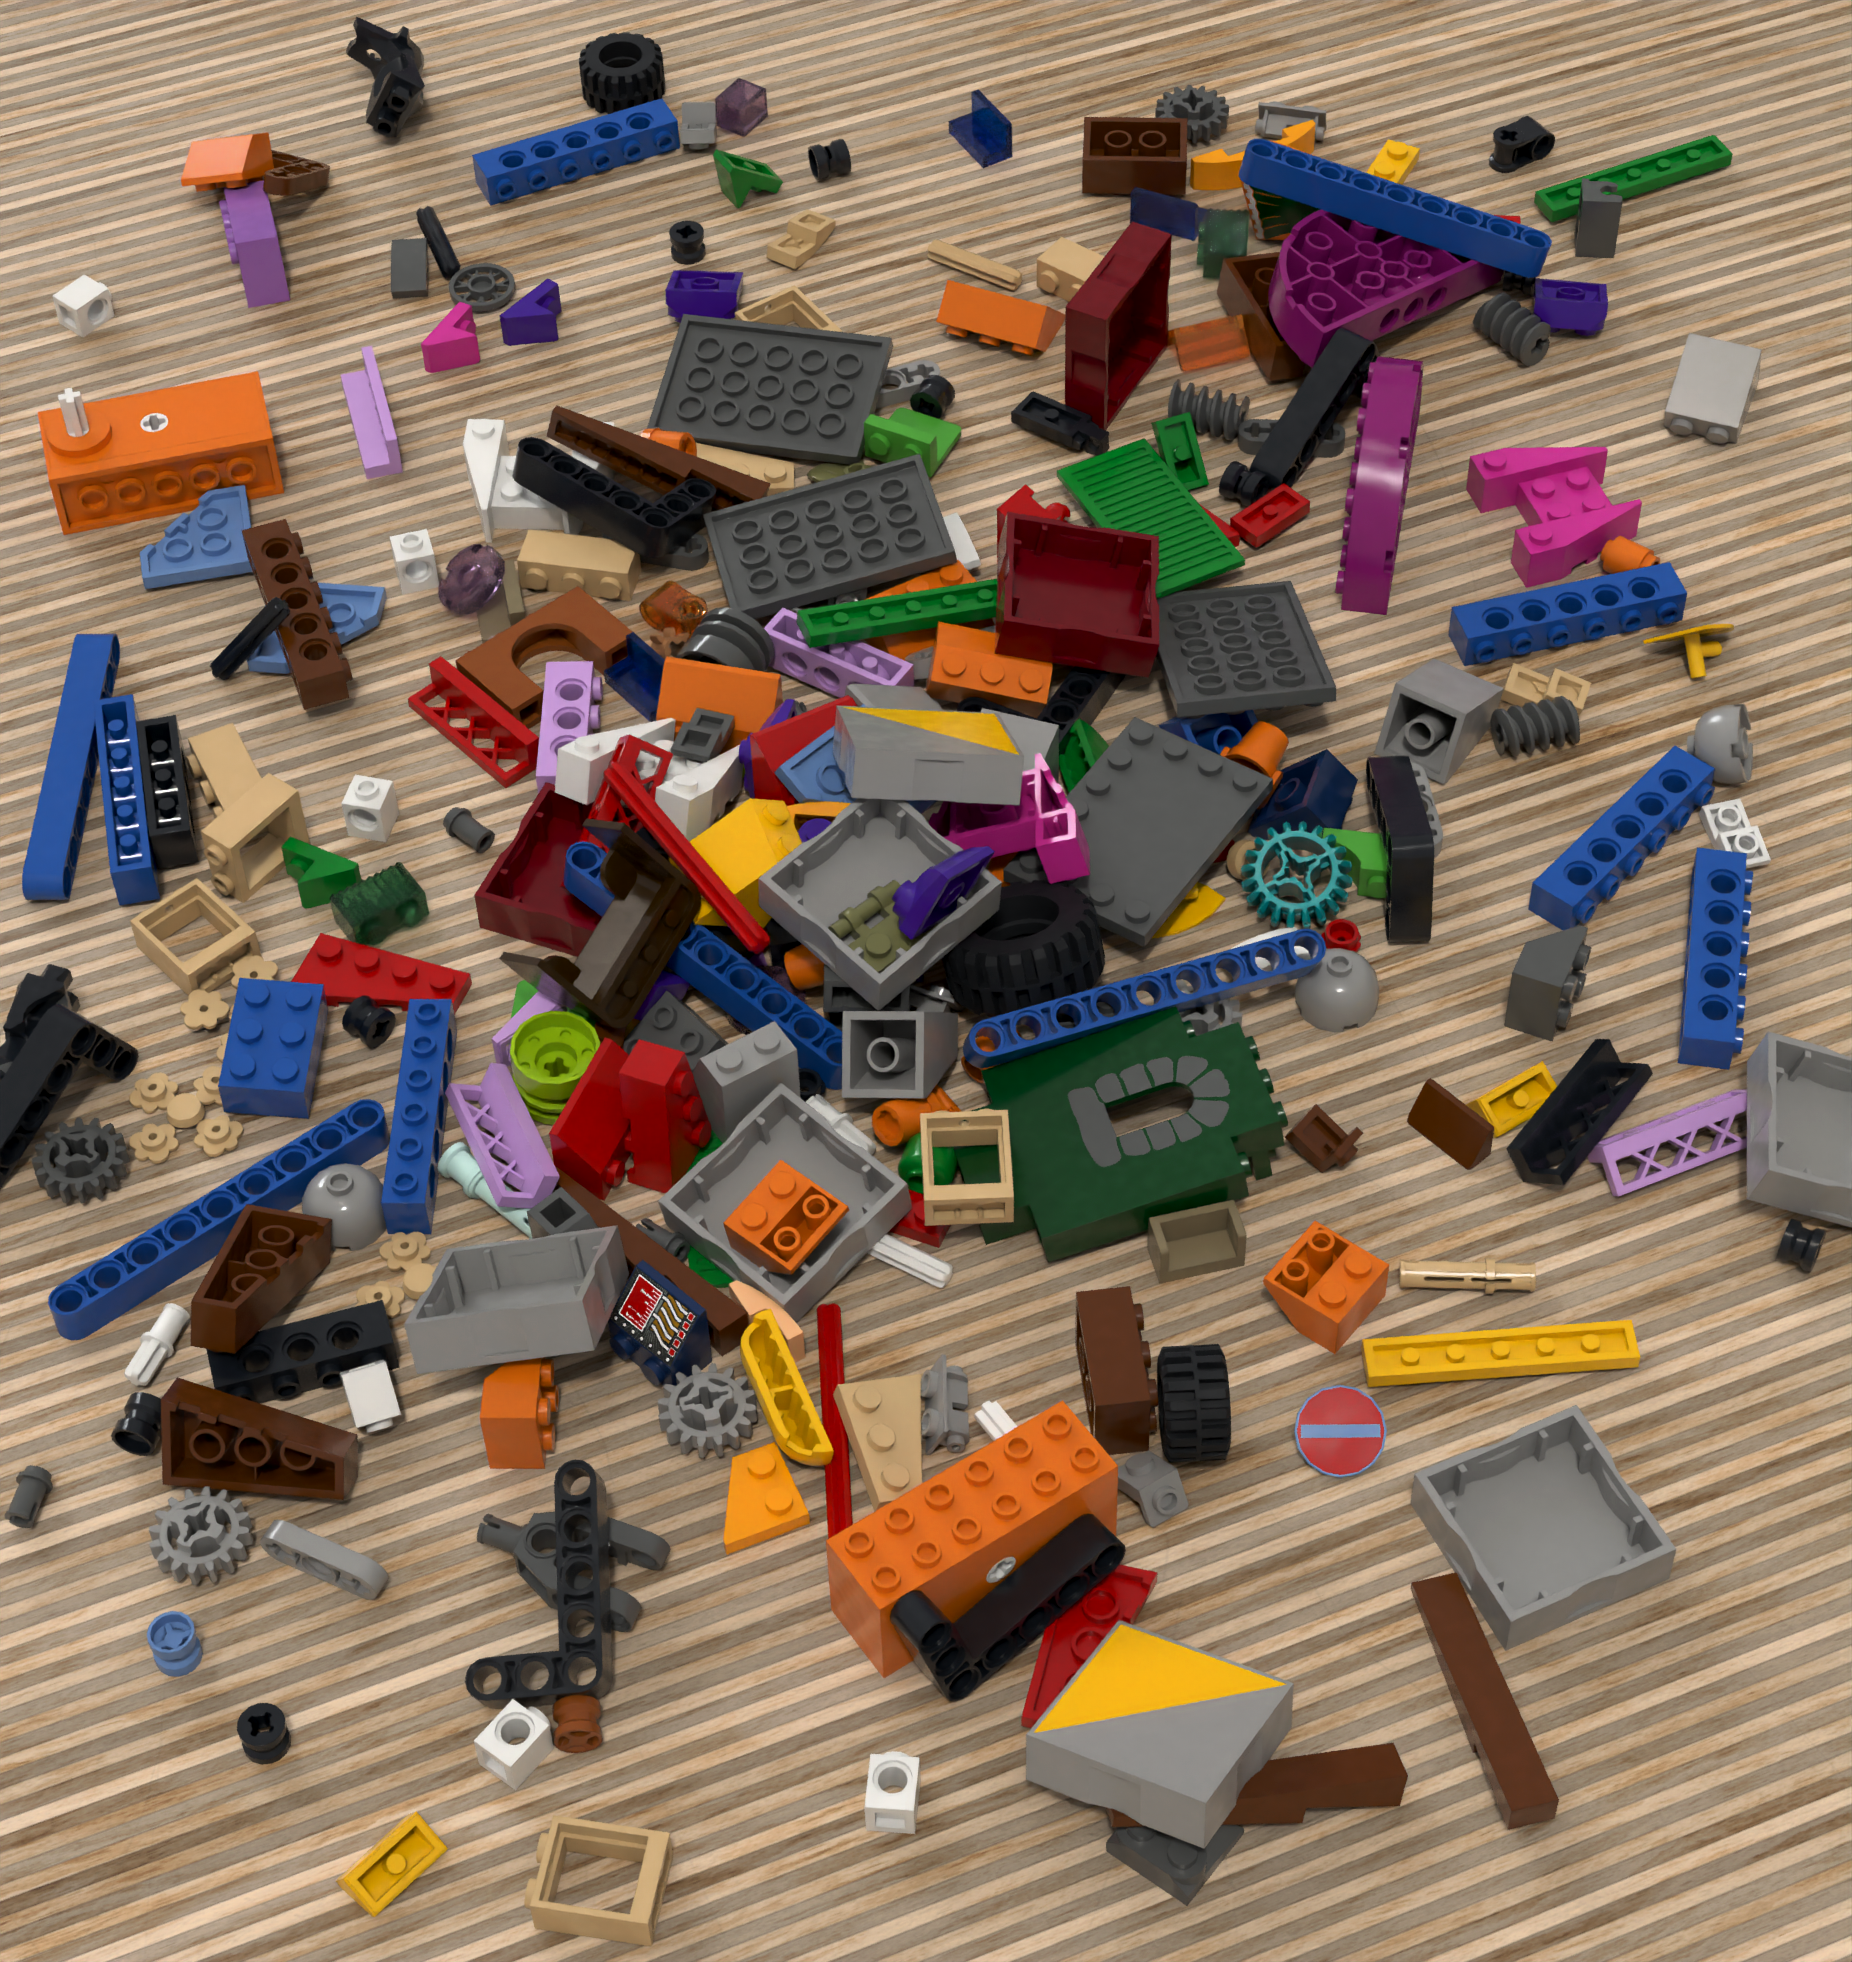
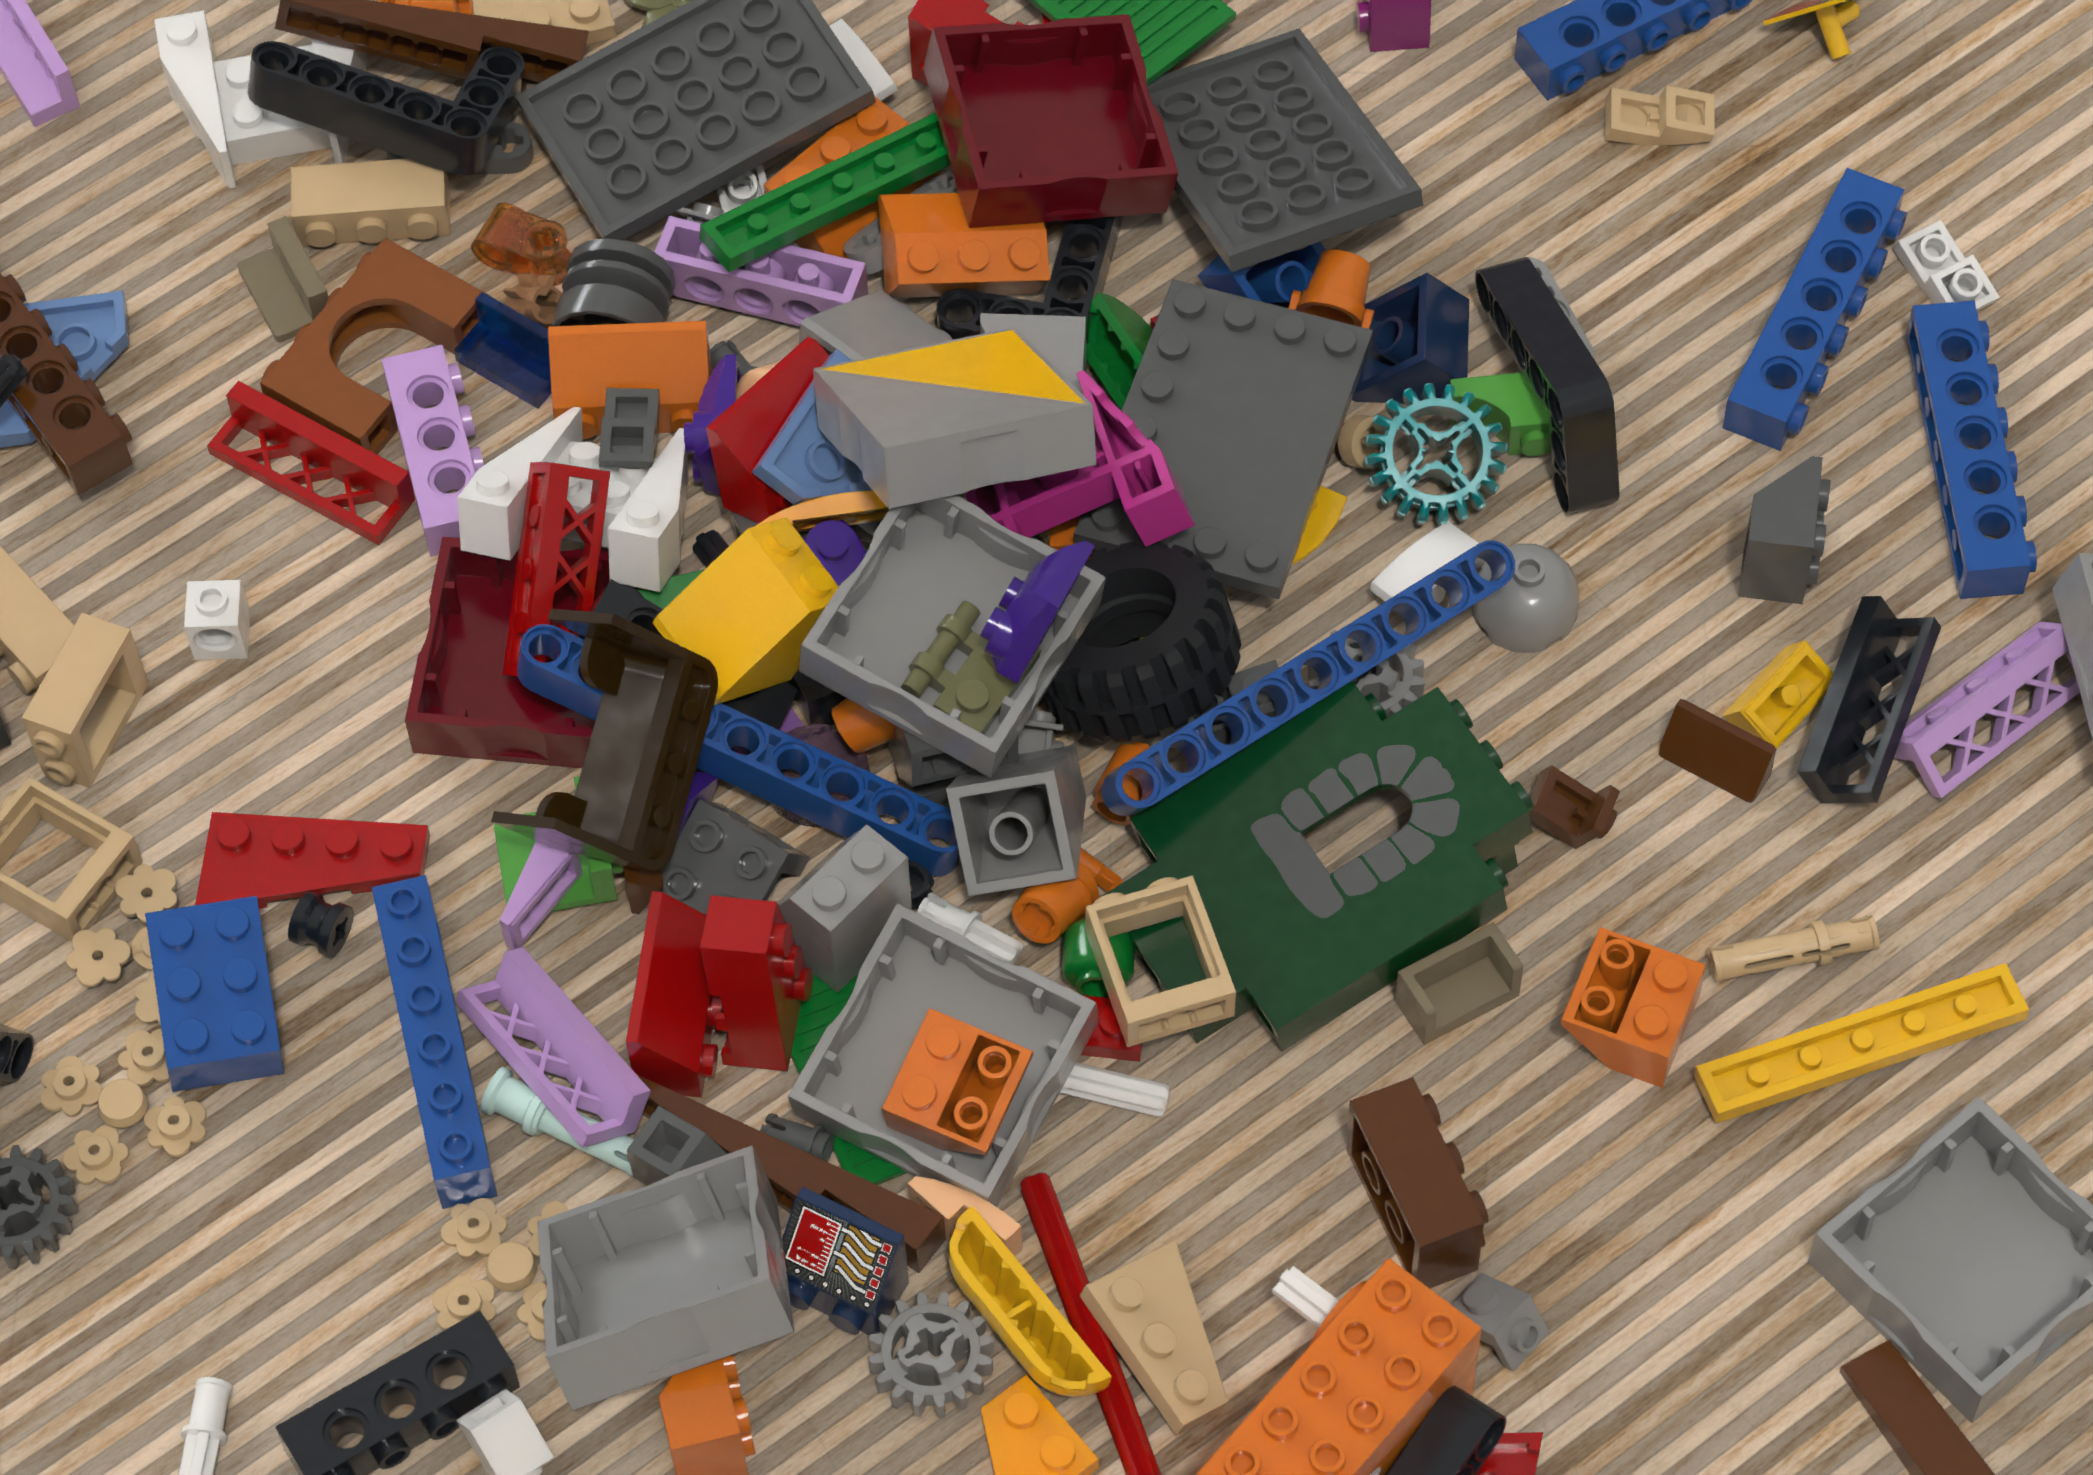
camera: 15 degrees left, 10 degrees up
(202, 1227) = (224, 1267): blue beam -> none
(256, 1274) = (312, 1310): reddish brown wedge -> none
(318, 872) = (191, 727): green slope -> none
(351, 1200) = (380, 1190): light grey cylinder -> none
(379, 905) = (278, 757): clear green brick -> none
(414, 561) = (149, 243): white brick -> none
(461, 824) = (354, 619): dark grey pin -> none
(471, 579) = (236, 254): tile -> none
(550, 1059) = (585, 910): lime wheel -> none
(687, 858) = (681, 621): red axle -> none
(943, 1390) = (1208, 1256): light grey hinge -> none
(1194, 1403) = (1530, 1205): black tyre -> none
(1340, 1431) = (1704, 1193): red piece -> none
(1342, 934) = (1509, 513): red plate -> none
(1437, 718) = (1542, 189): light grey slope -> none
(1535, 723) = (1664, 171): dark grey piece -> none
(1723, 743) = (1902, 149): light grey cylinder -> none

